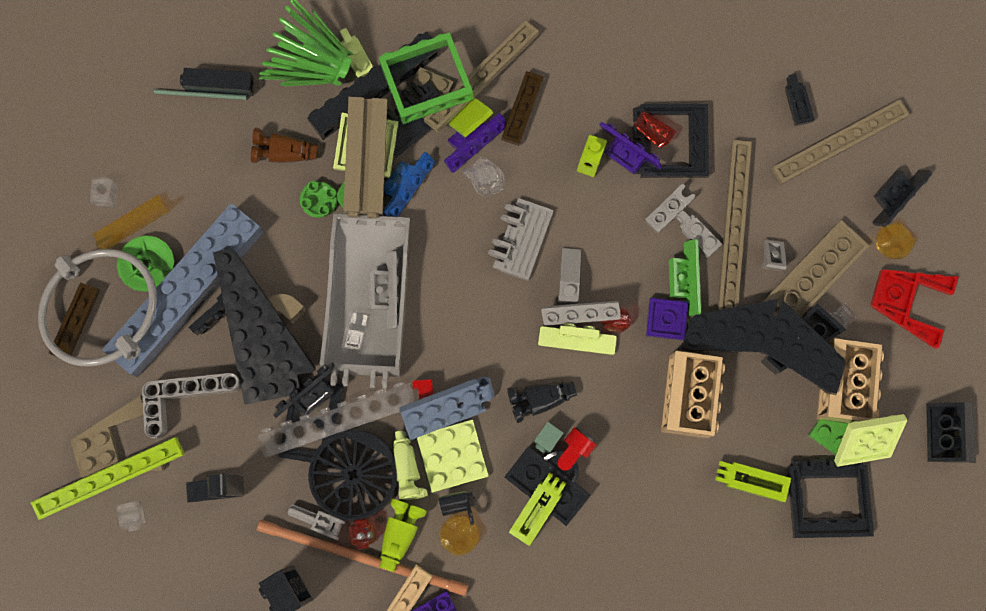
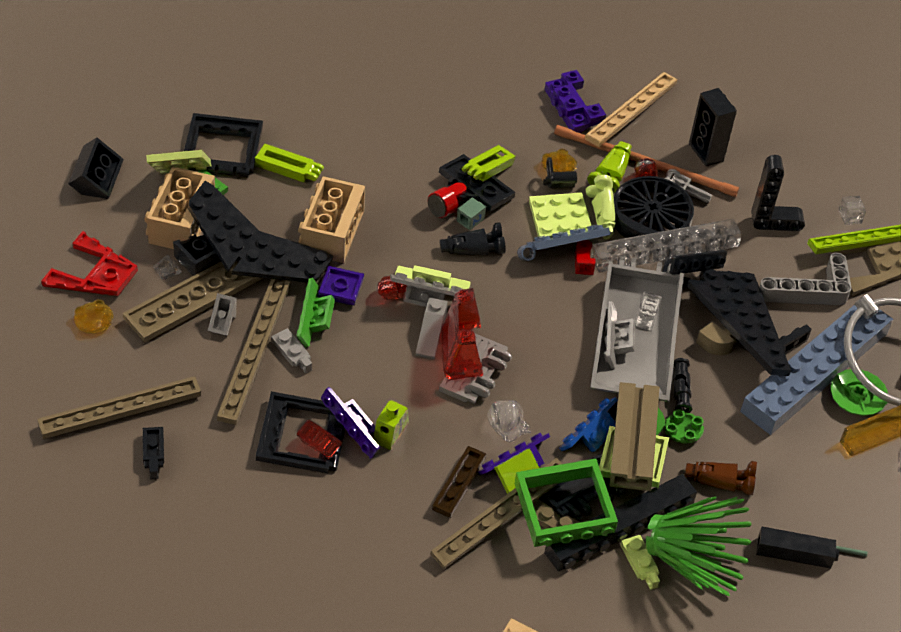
camera: 175 degrees left, 30 degrees down
(320, 243) = (682, 385): none -> black piece
(541, 228) = (458, 339): none -> clear red windscreen
(669, 209) = (316, 373): light grey plate -> none
(897, 193) = (75, 352): black bracket -> none

